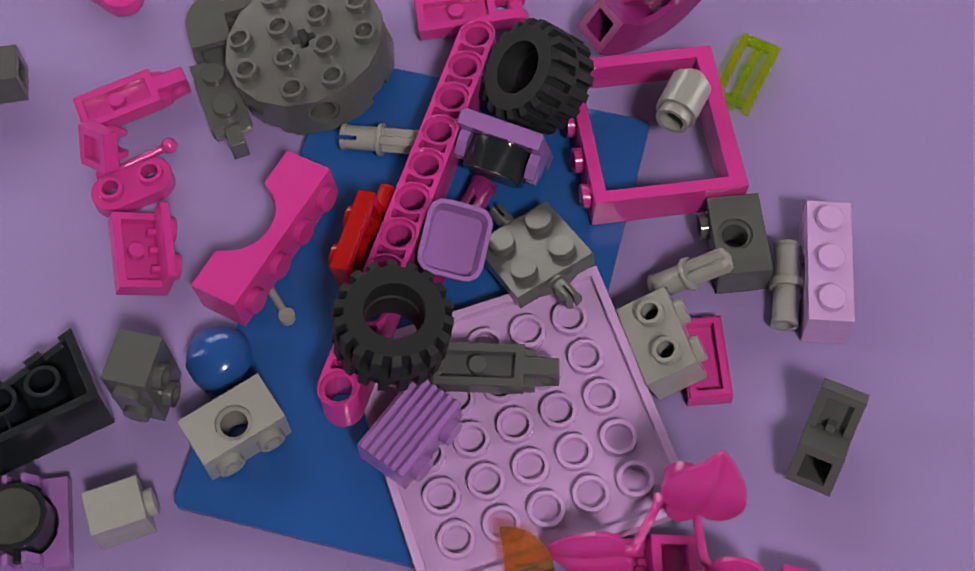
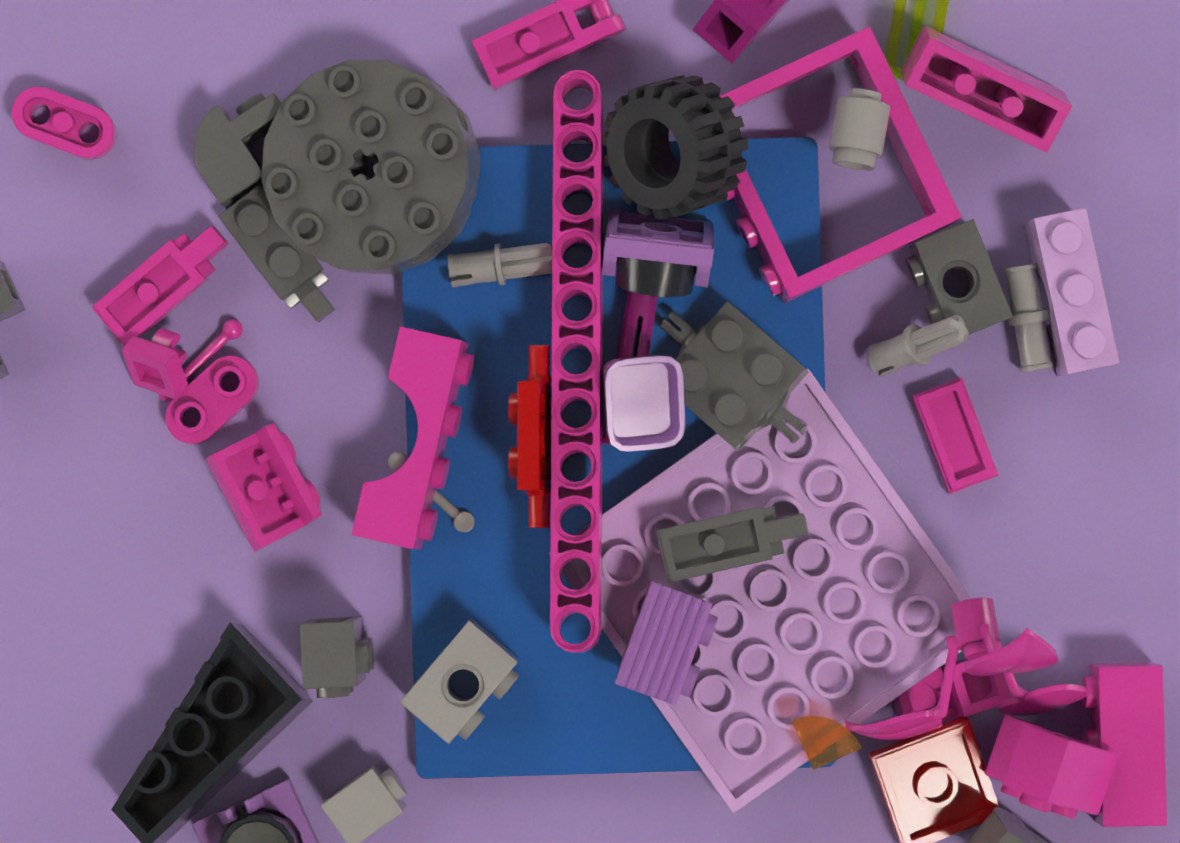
camera: 20 degrees left, 25 degrees up
(218, 358) = (407, 600): blue hair -> none
(397, 292) = (663, 543): black tyre -> none
(662, 342) = (907, 439): light grey brick -> none
(789, 109) = (985, 89): none -> dark pink brick
(827, 437) = (1112, 506): dark grey brick -> none

